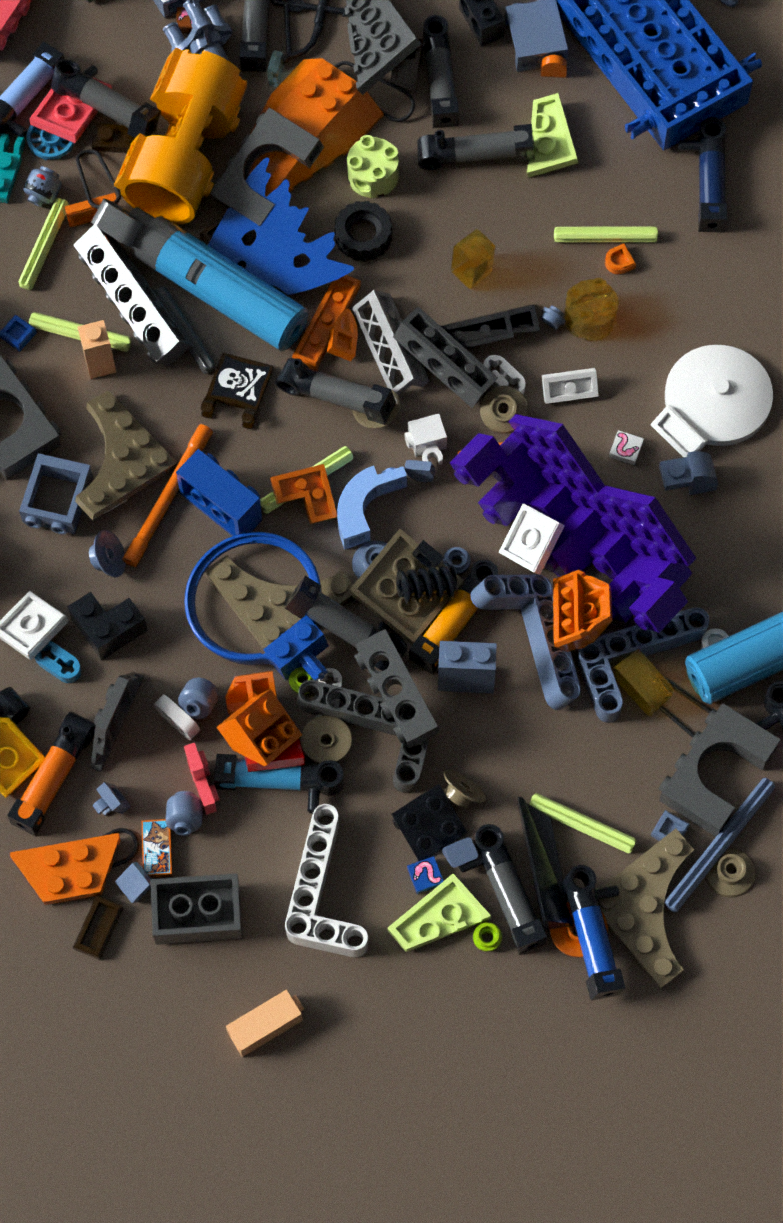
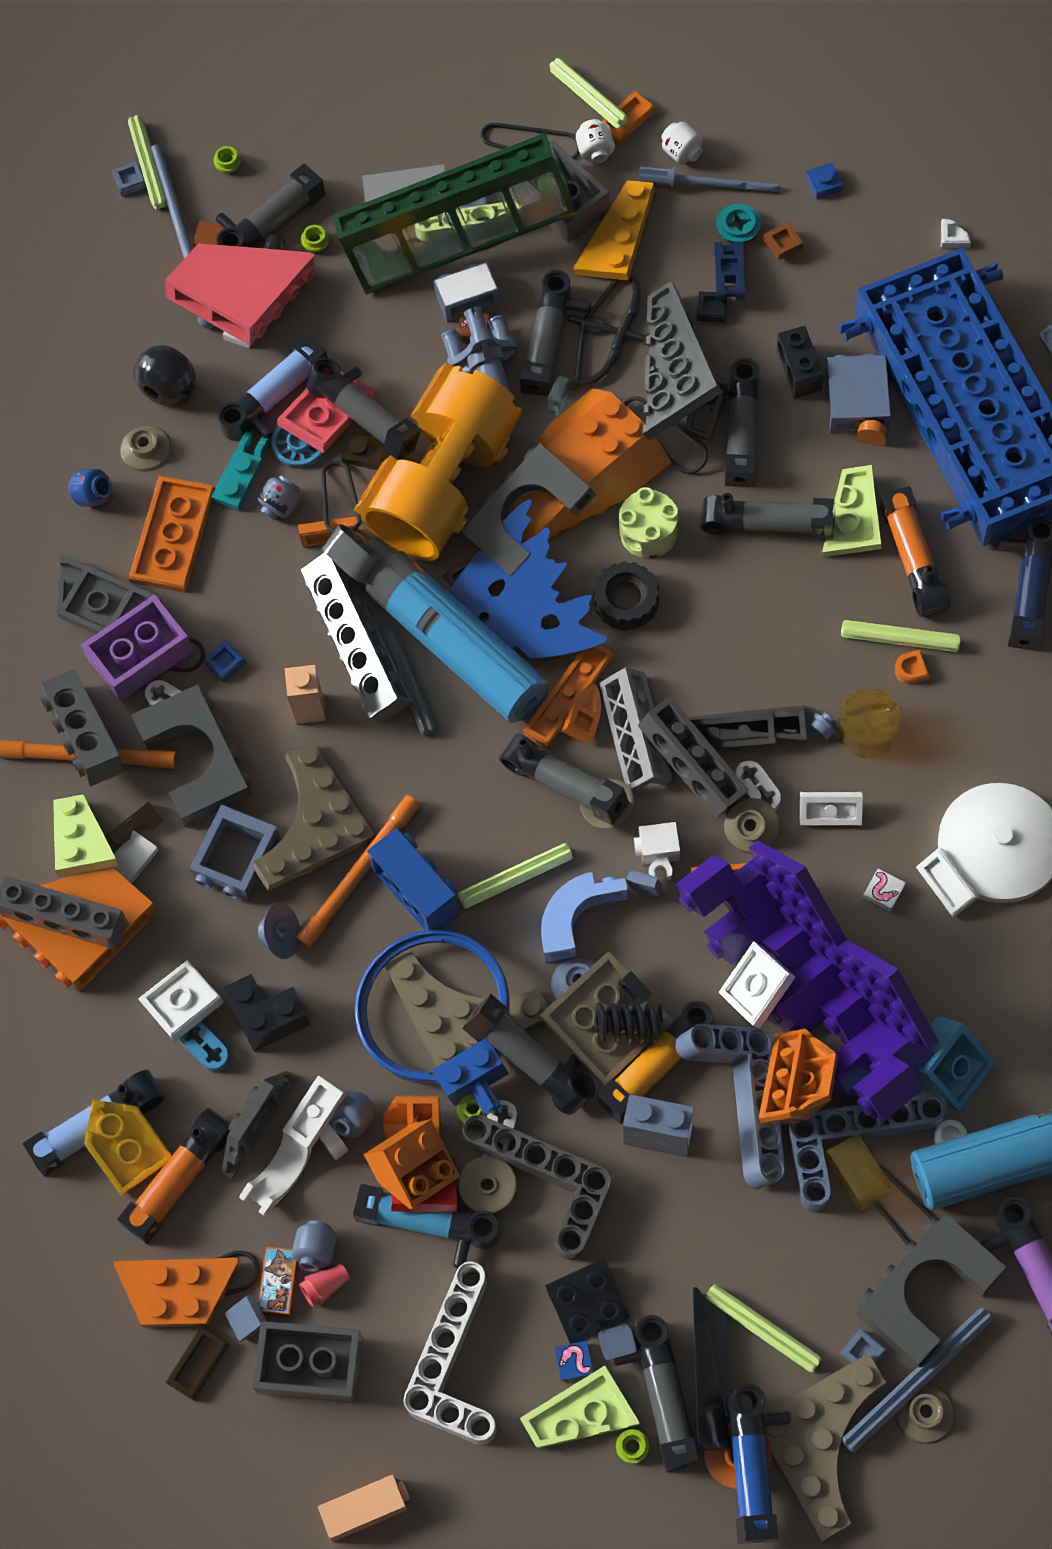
camera: 15 degrees right, 0 degrees up
(43, 244) = (269, 563): yellowish green axle -> none
(70, 329) = (279, 662): yellowish green axle -> none
(111, 800) = (236, 1217): sand blue tile -> none
(154, 730) = (296, 1145): none -> white piece
(197, 844) = (323, 1284): none -> coral cone
(199, 769) = (337, 1200): coral plate -> none
(238, 384) = (459, 754): flag -> none
(310, 485) = (517, 884): orange plate -> none
(380, 648) = (596, 1187): dark grey brick -> none
(457, 553) = (669, 986): sand blue plate -> none
(462, 789) = (632, 1267): dark tan piece -> none
(481, 255) = (749, 643): clear yellow piece -> none
(623, 193) = (900, 513): none -> piece
(693, 471) = (956, 931): sand blue brick -> none
(712, 581) = (957, 1065): none -> dark azure slope

